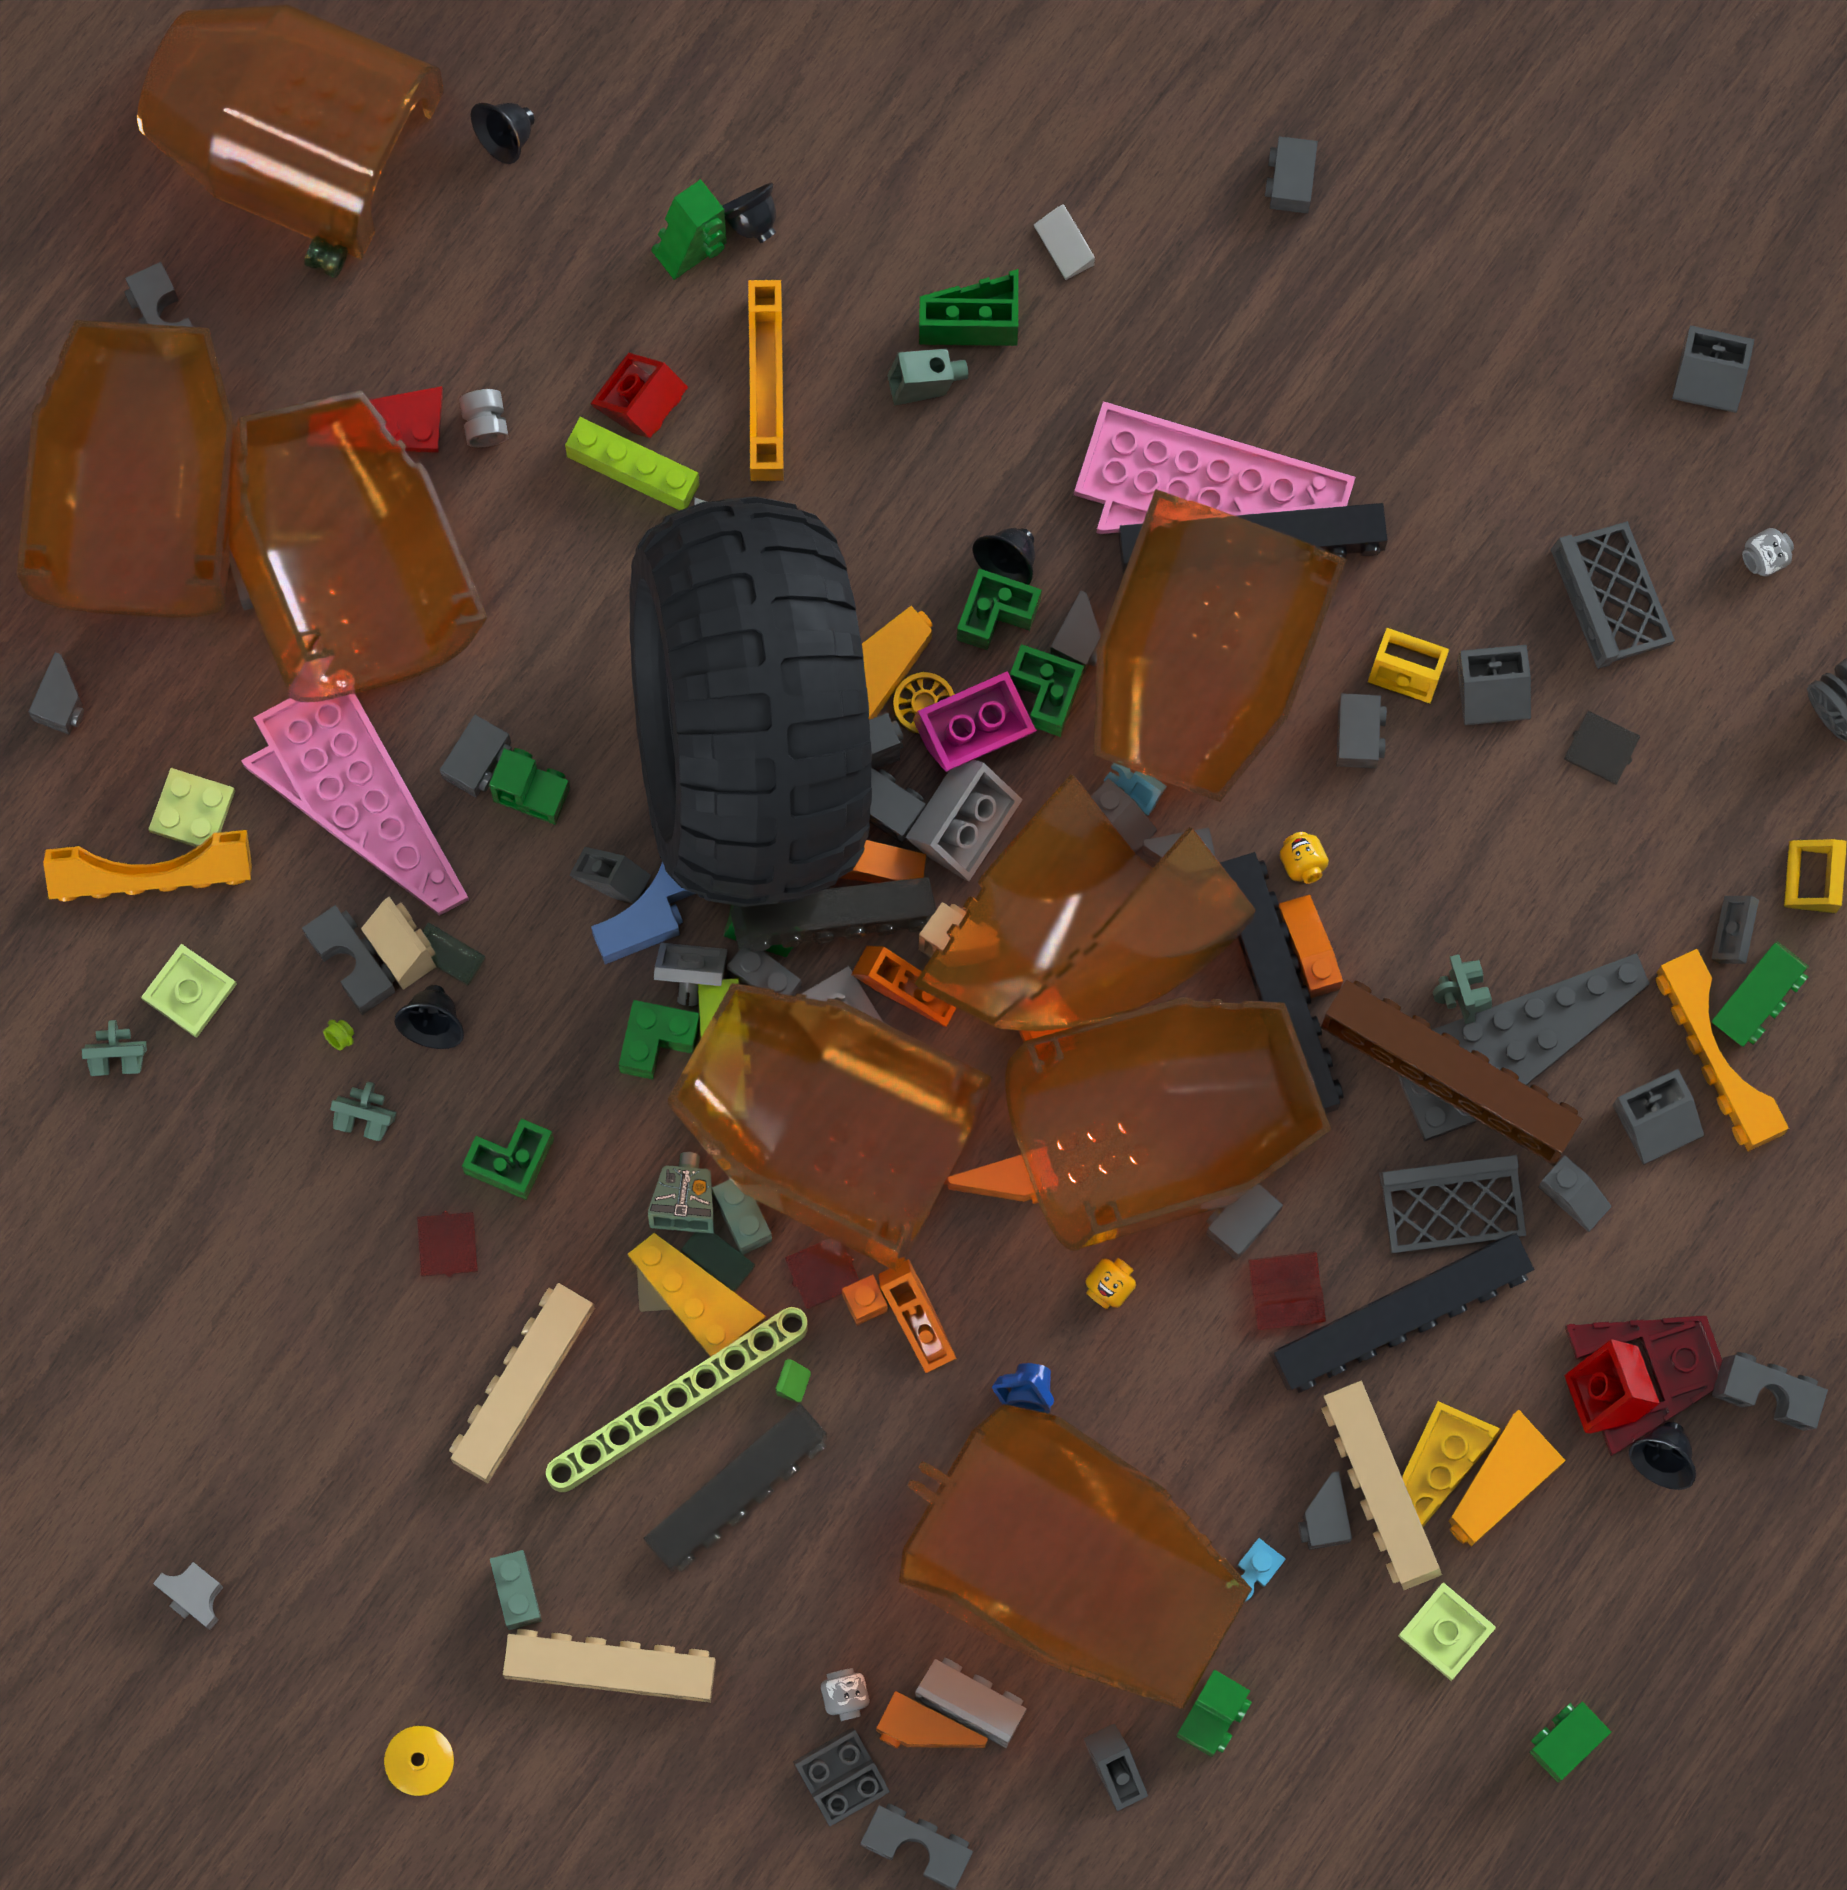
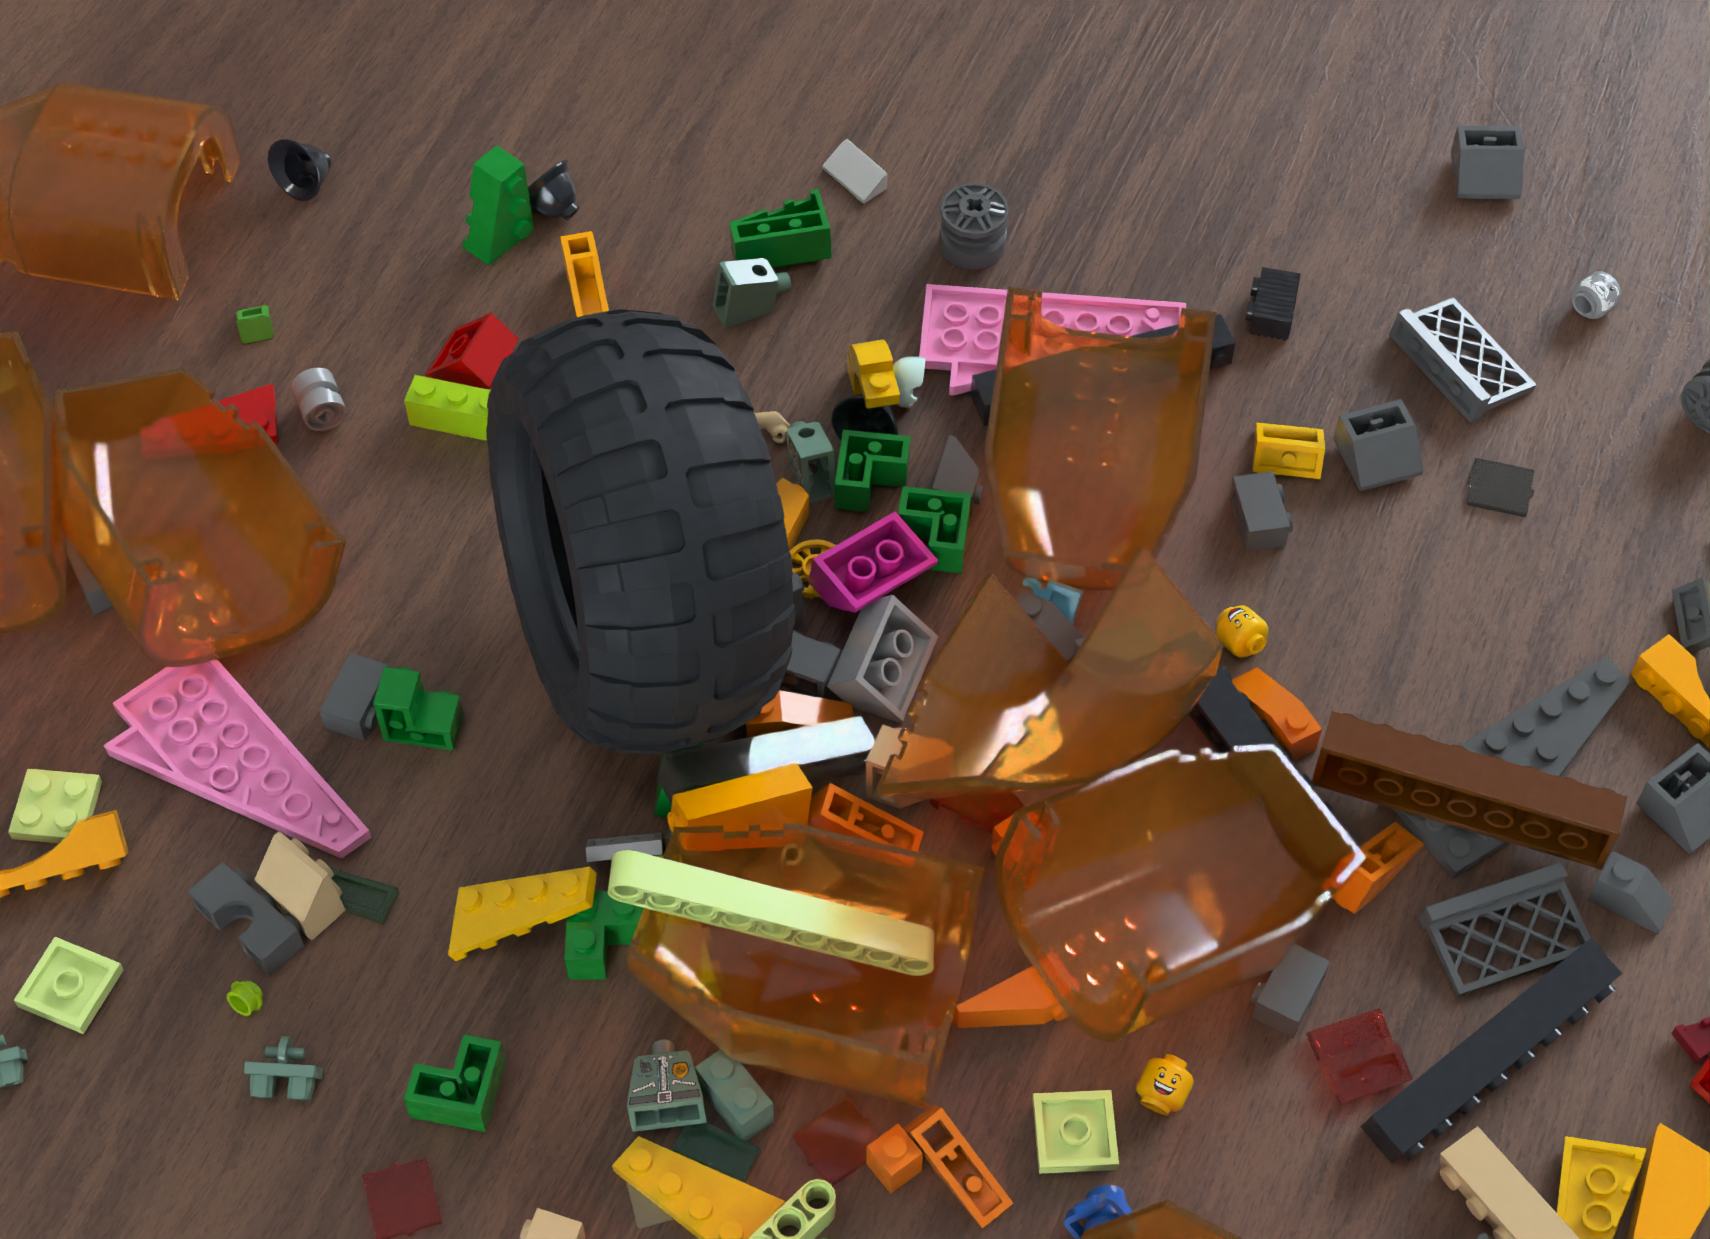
camera: 10 degrees left, 20 degrees down
(325, 256) = (142, 297): wheel -> none
(430, 1020) = (345, 961): black hat -> none
(432, 307) = (254, 324): none -> bright green slope
(583, 1002) = (516, 905): none -> yellow wing
(610, 874) = (522, 780): dark grey slope -> none
(644, 922) = (574, 810): medium blue arch -> none
(800, 961) = (756, 799): none -> light orange slope
(801, 1077) = (771, 913): none -> yellowish green beam
(918, 532) = (774, 424): none -> tan arm
(943, 586) = (807, 446): none -> sand green torso
(1021, 513) = (872, 373): none -> yellow arch
(1024, 1307) = (1075, 1131): none -> yellowish green plate
(1055, 514) = (909, 375): none -> light aqua hair
(1163, 360) = (973, 226): none -> dark grey wheel
(1293, 174) = (1051, 86): dark grey brick -> none
(1359, 1116) = (1385, 858): none -> orange slope
(1444, 493) = (1274, 303): none -> black brick
(1458, 989) = (1443, 718): sand green hips -> none

